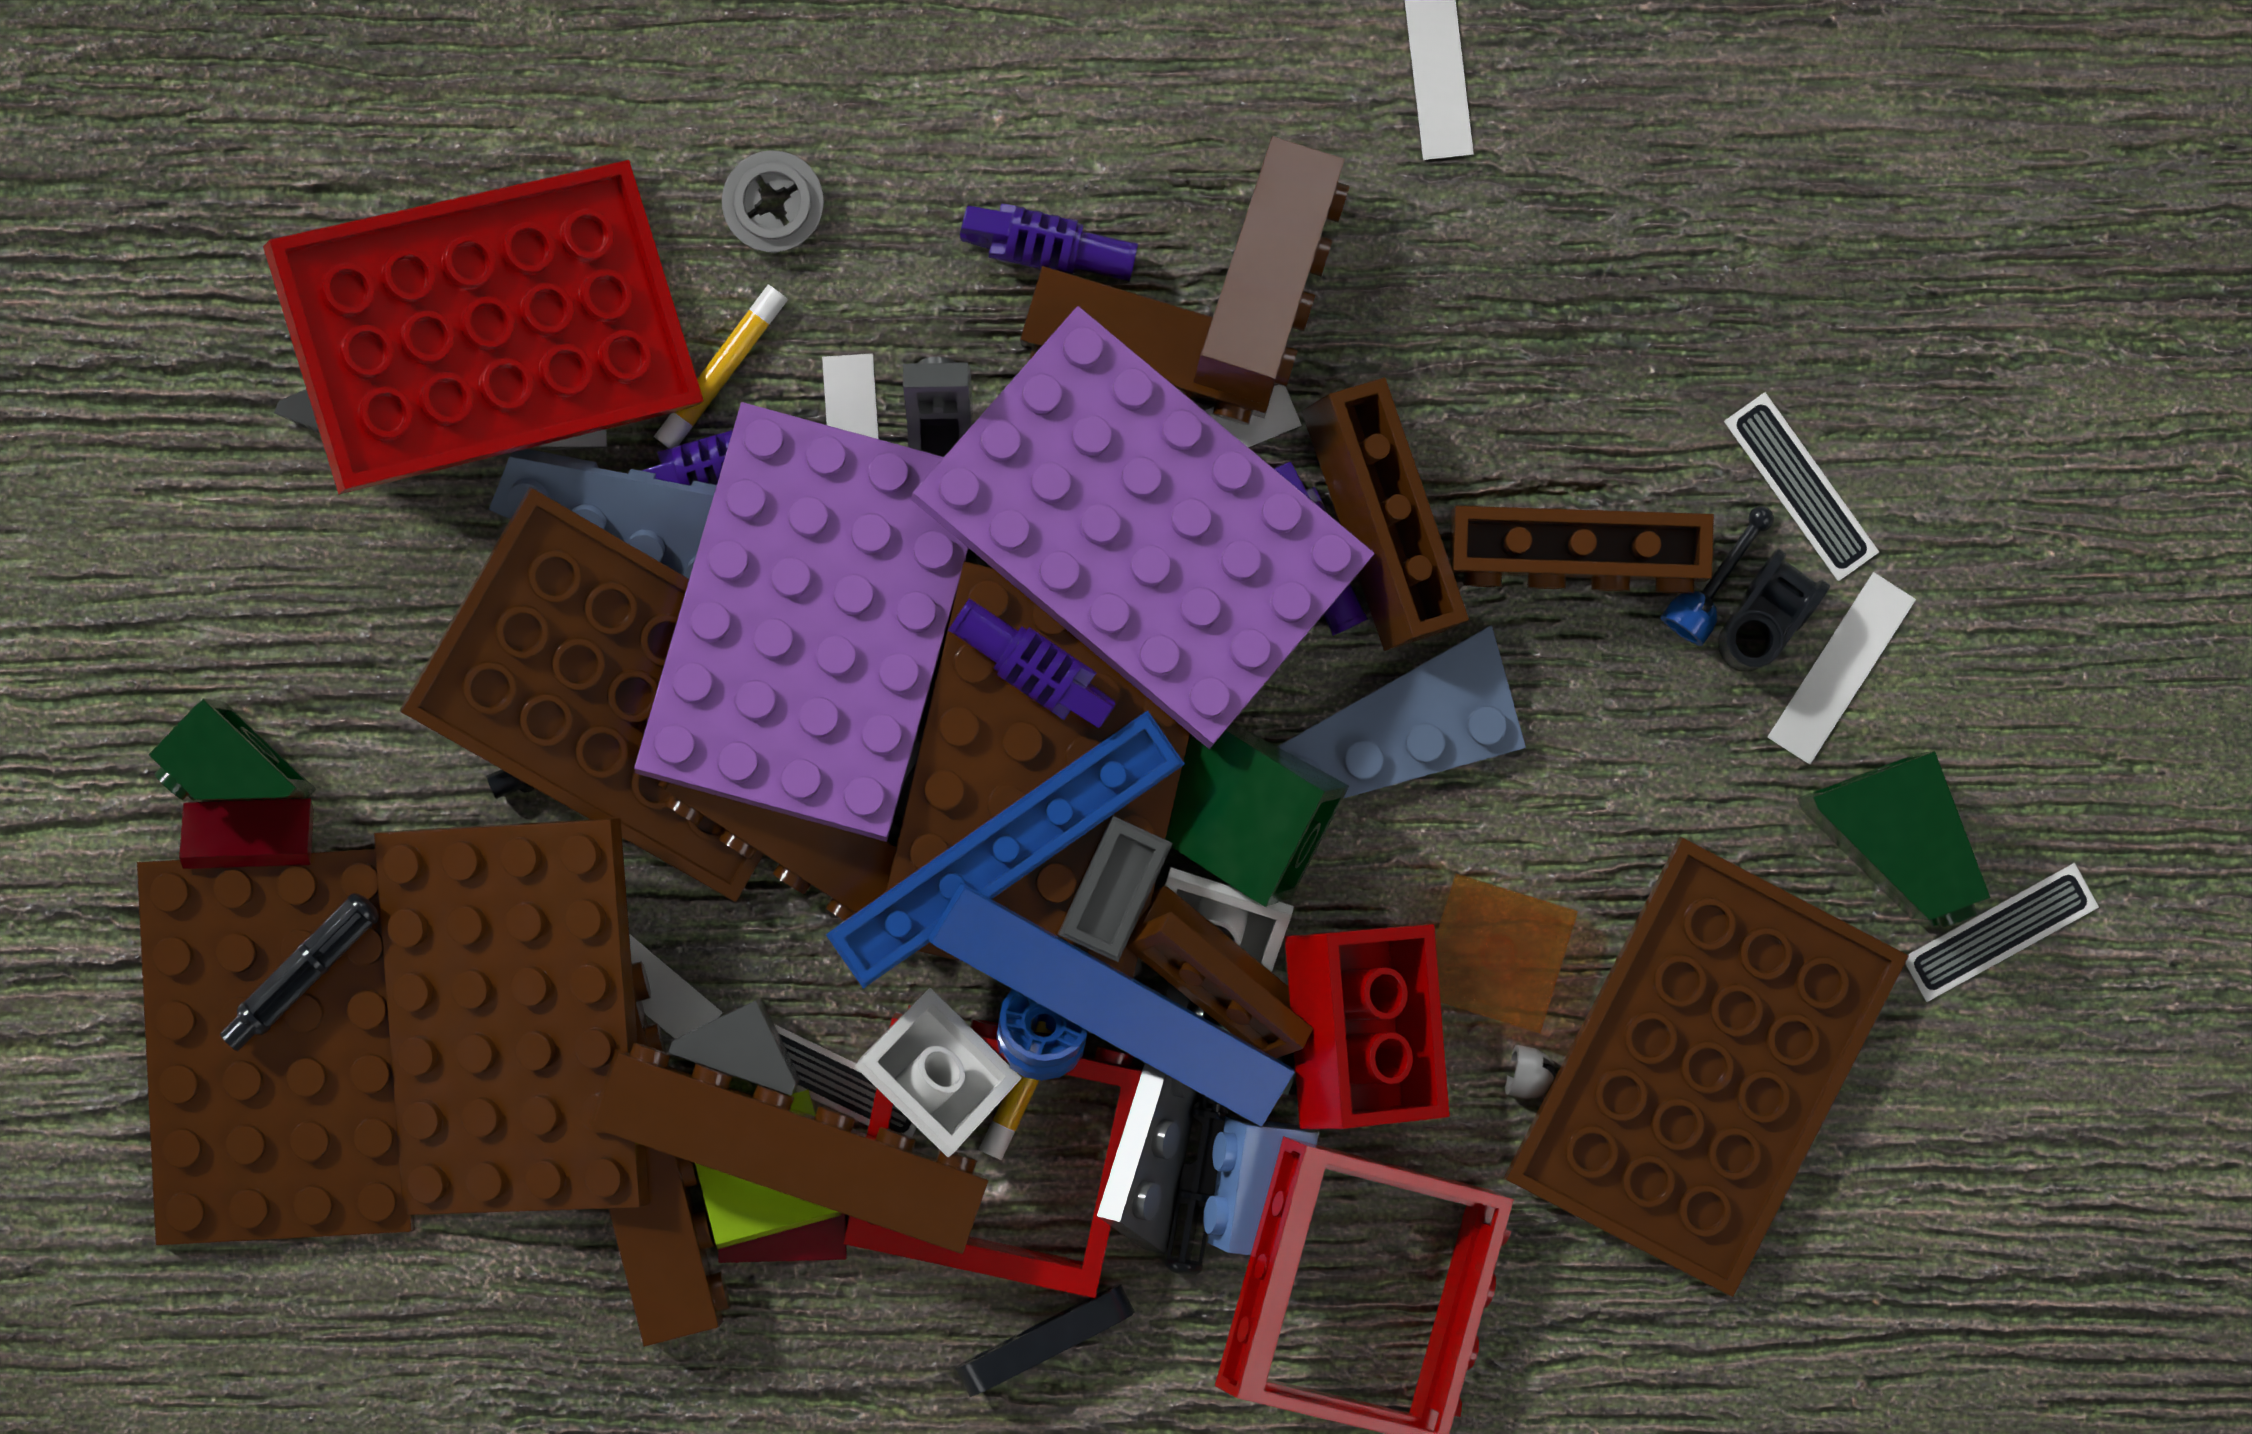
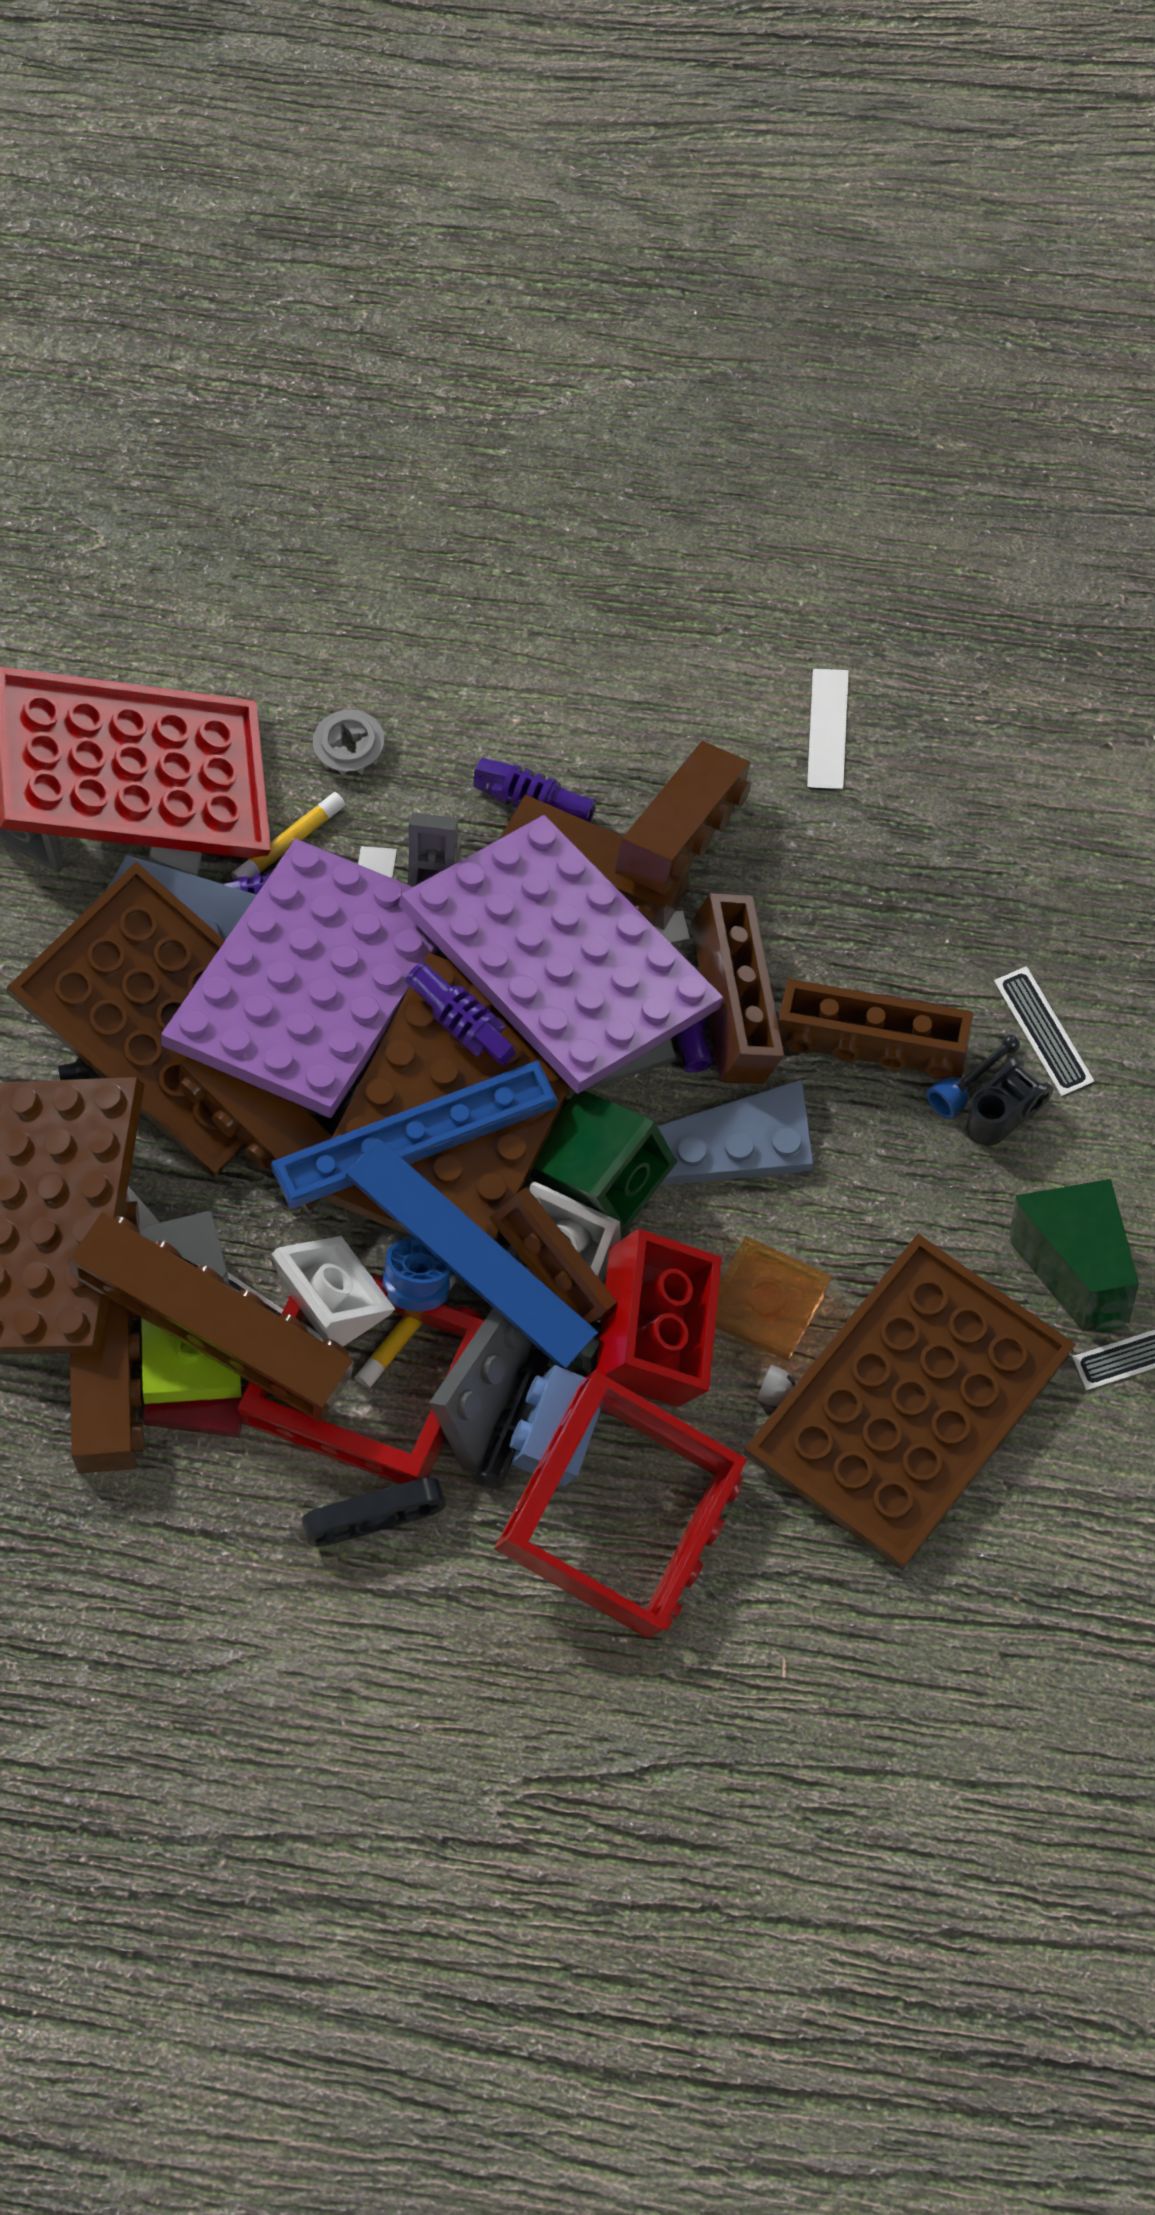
camera: 10 degrees right, 25 degrees down
(1115, 888) = (490, 1174): dark grey tile -> none
(1841, 668) = (1057, 1150): white sticker -> none

